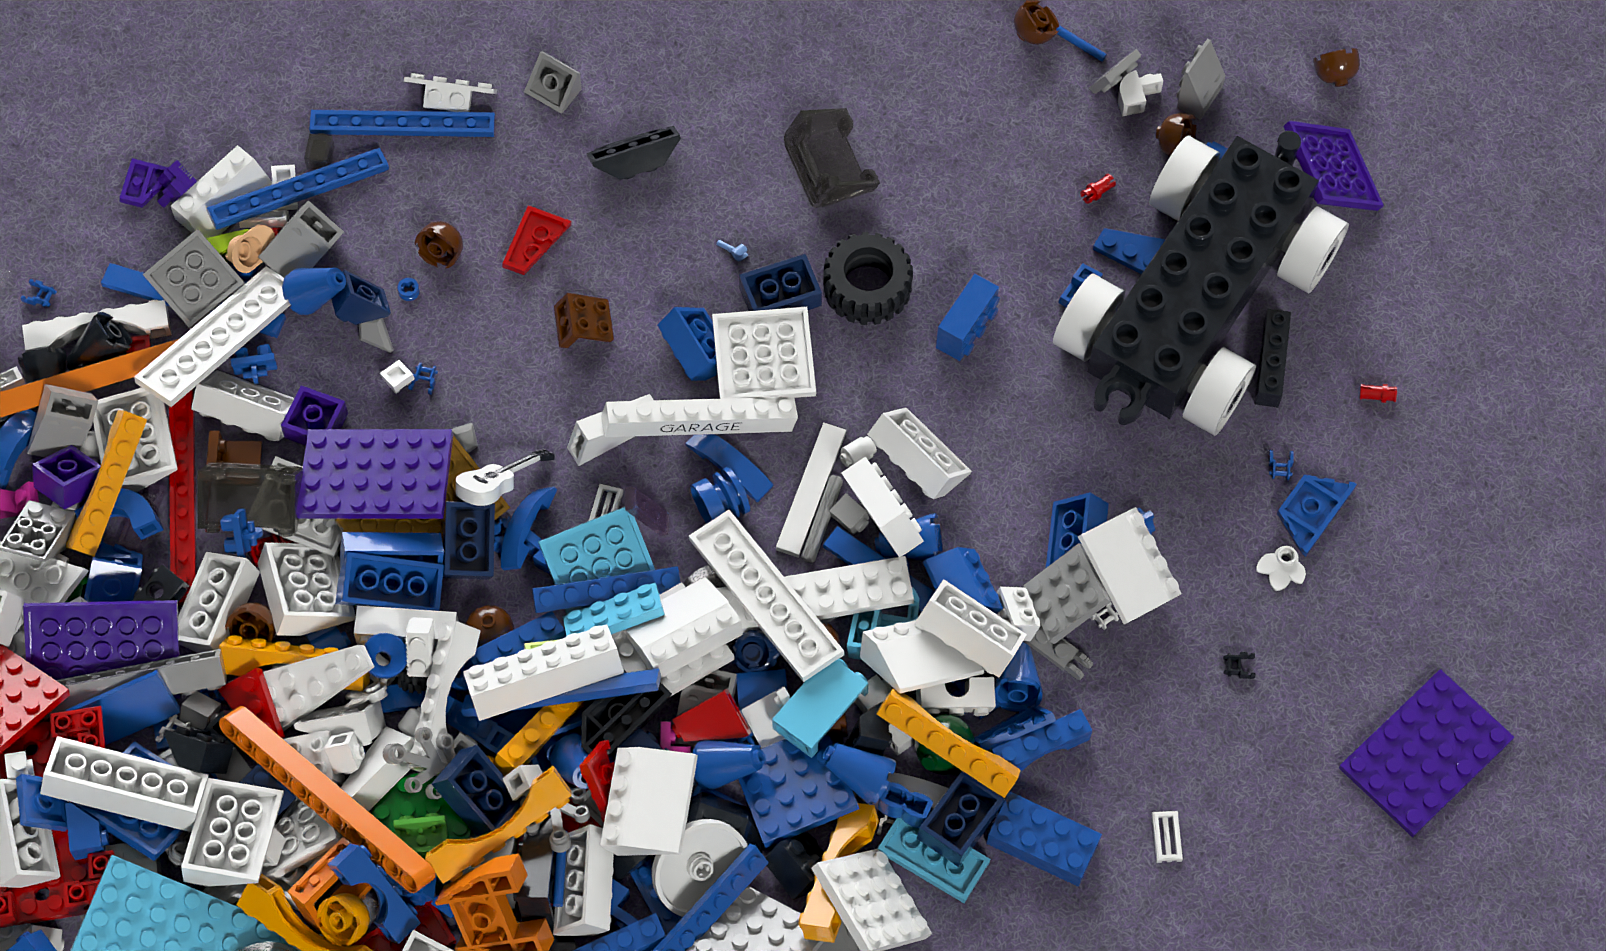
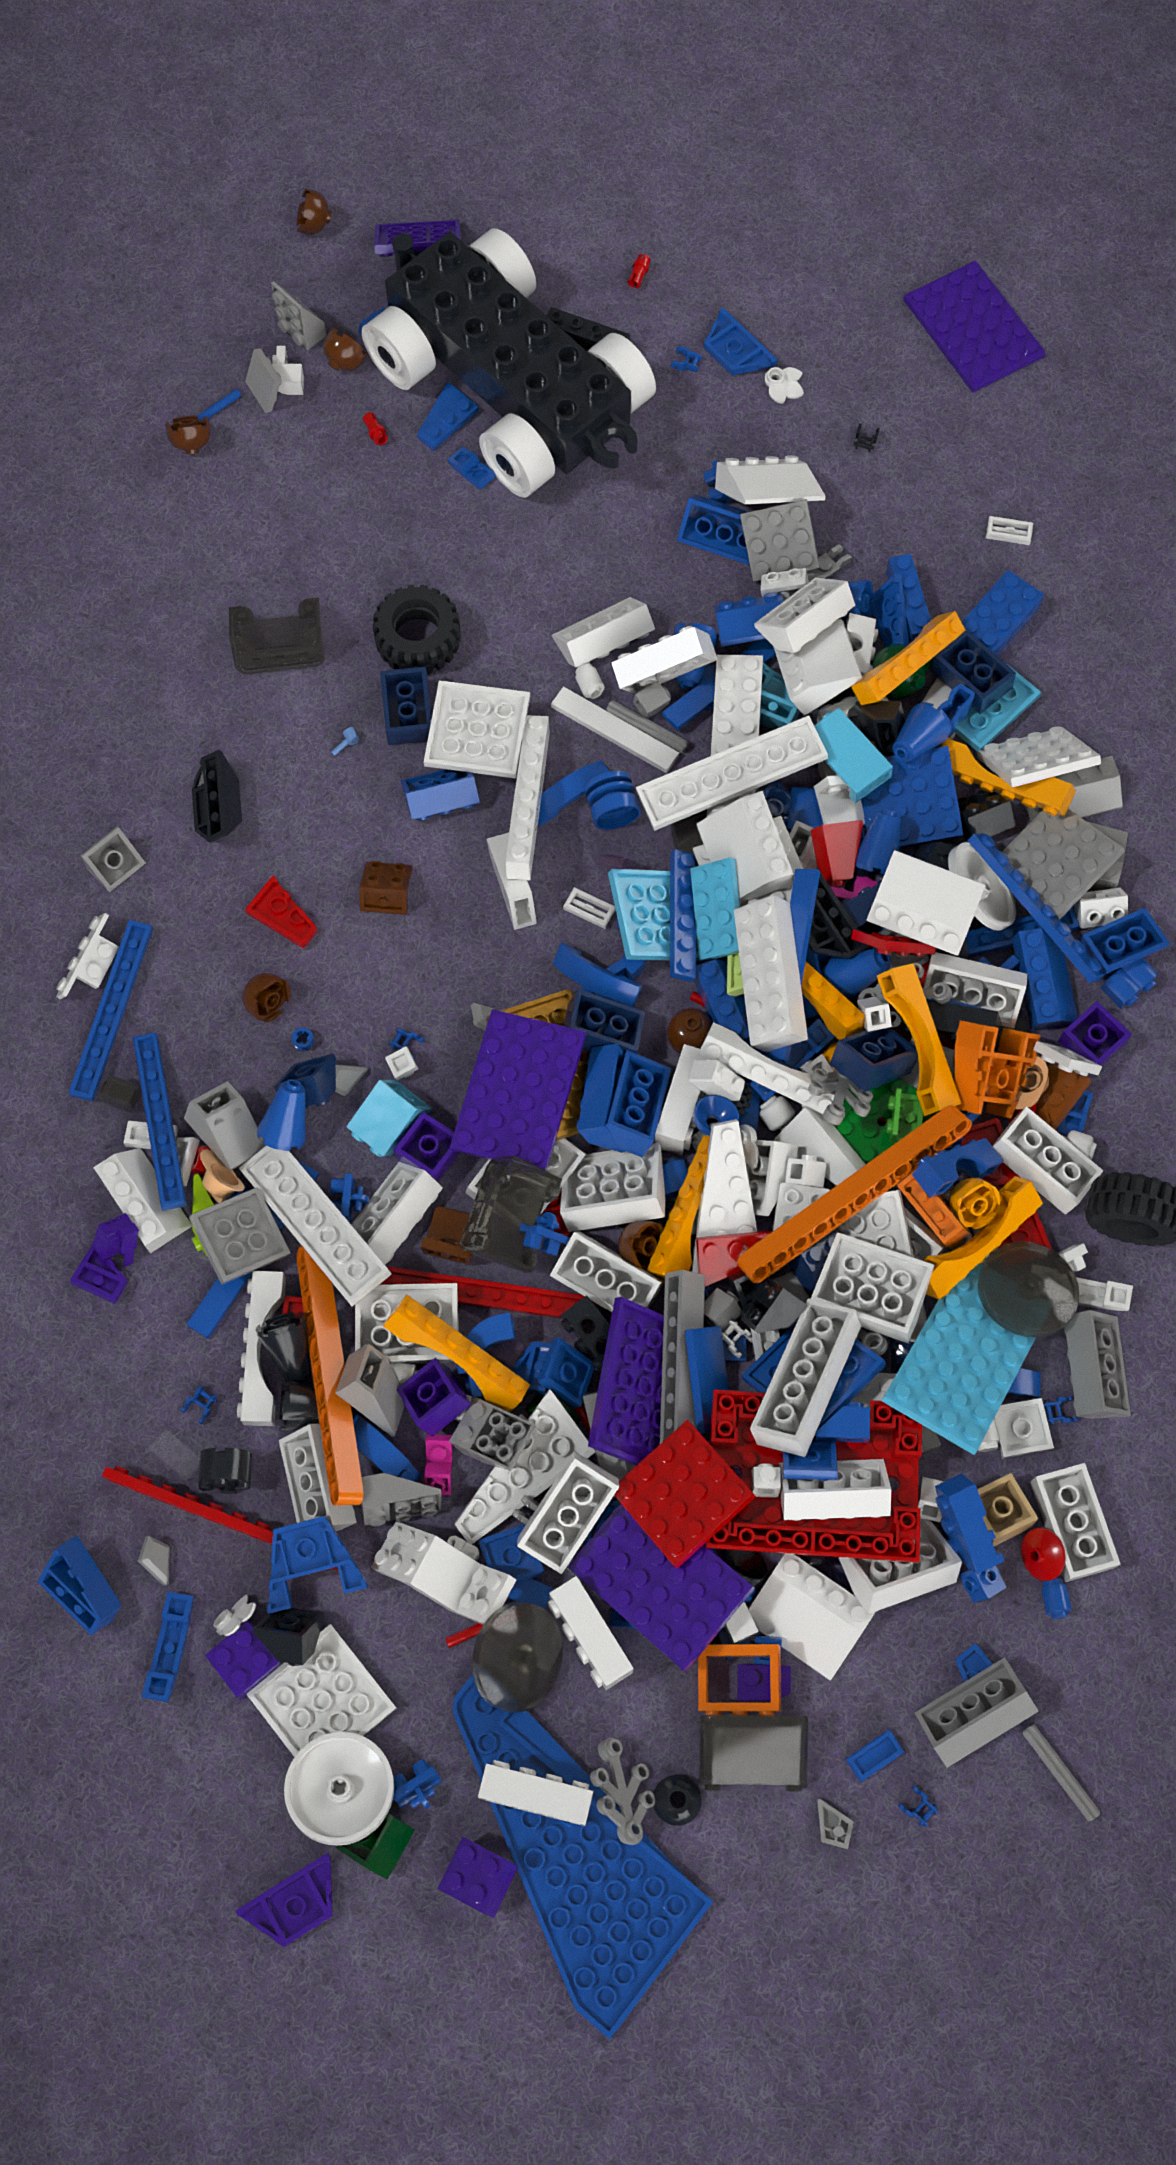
camera: 75 degrees left, 5 degrees up
(345, 376) = (386, 1116): none -> medium azure slope
(489, 483) = (553, 992): white piece -> none
(968, 317) = (482, 556): blue brick -> none

